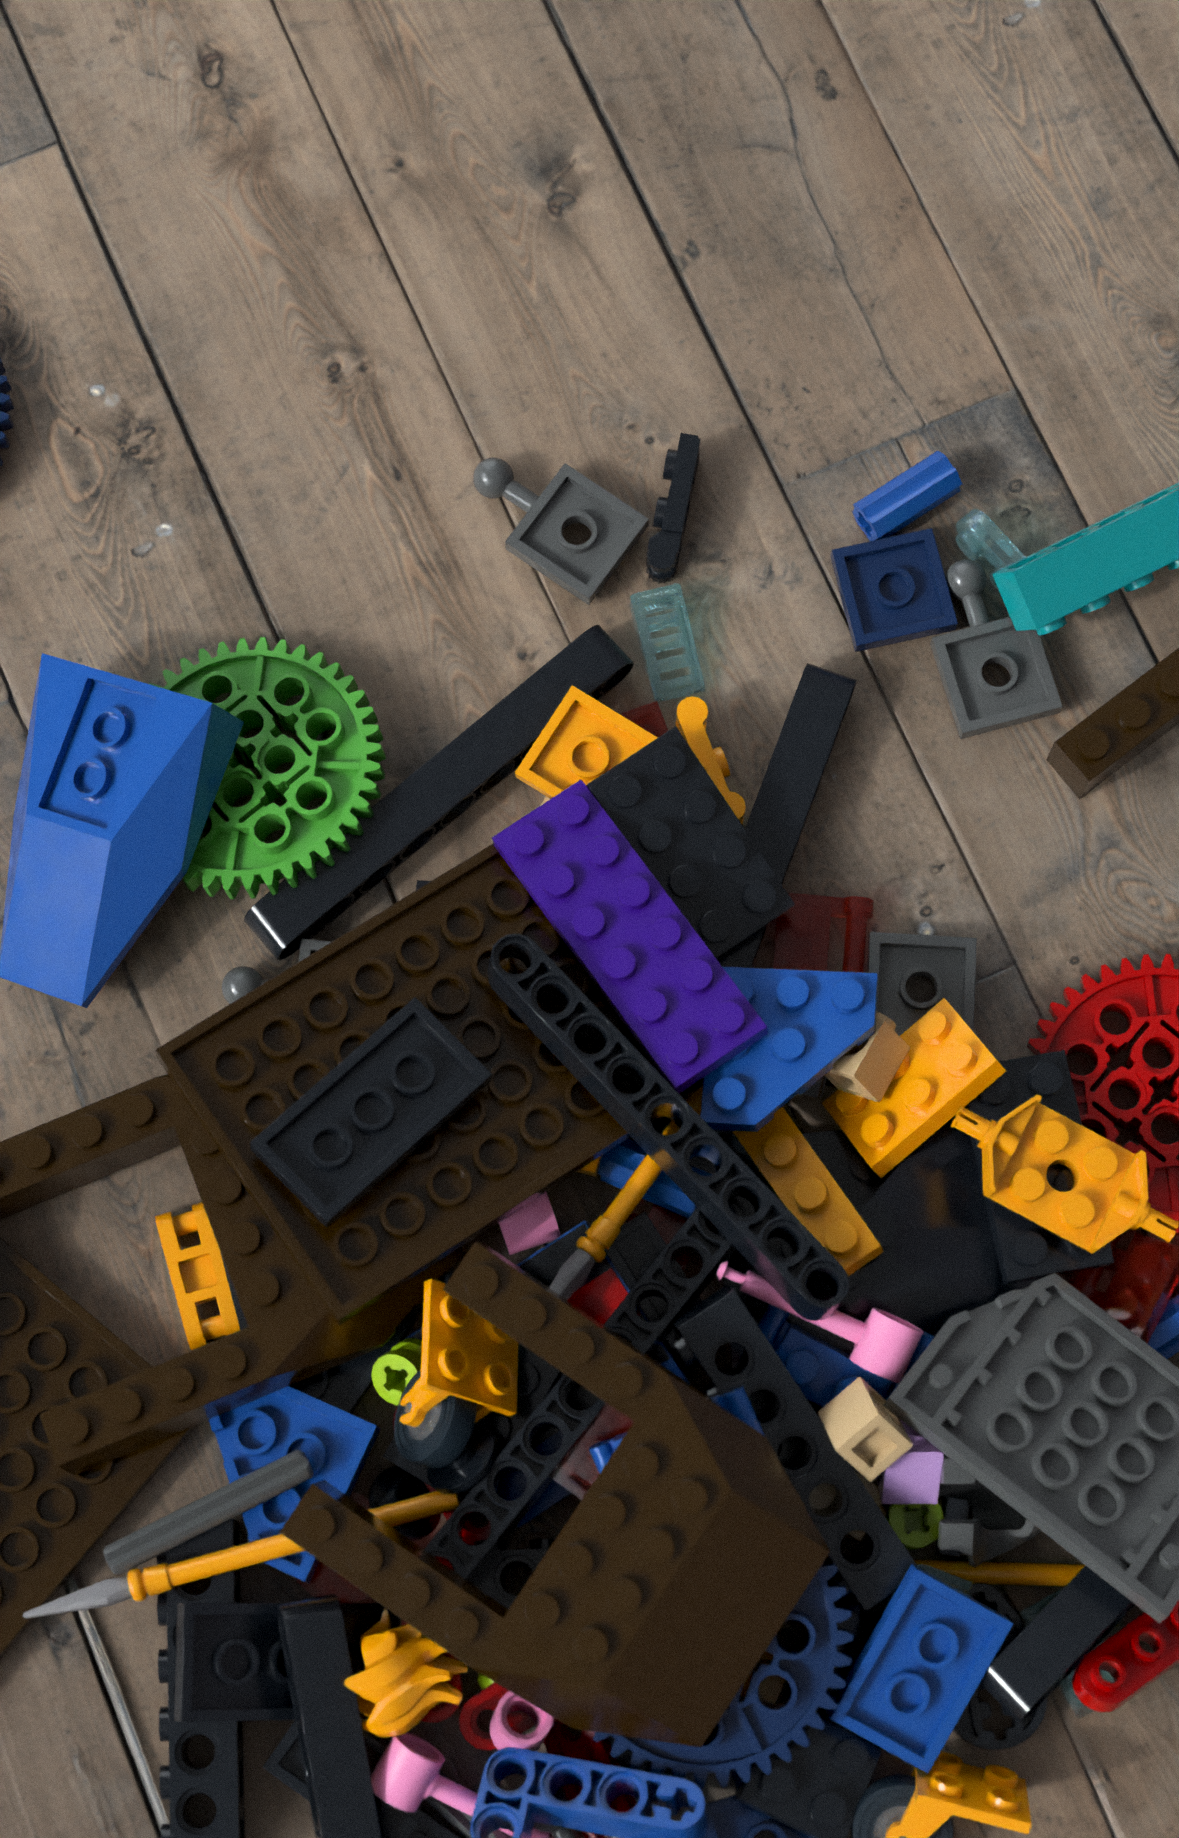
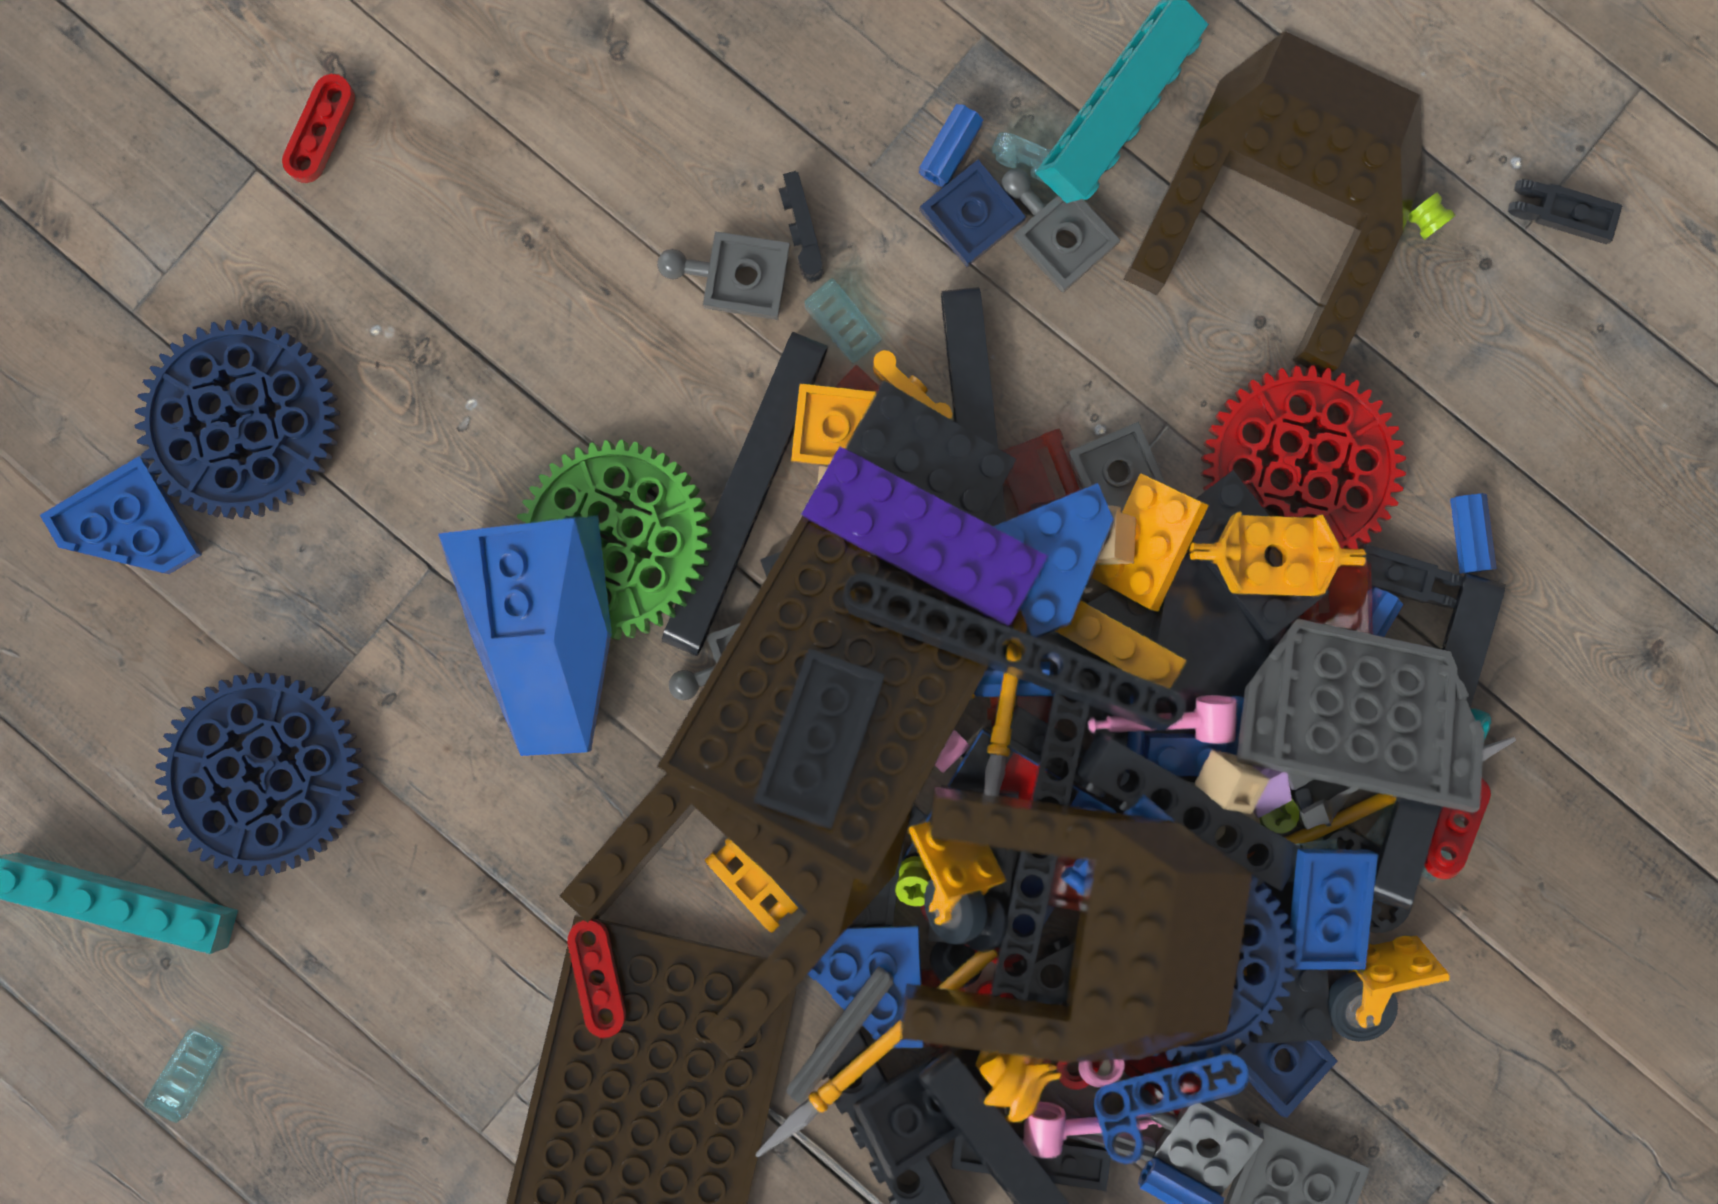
camera: 30 degrees left, 10 degrees up
(165, 111) = (318, 113): none -> red plate

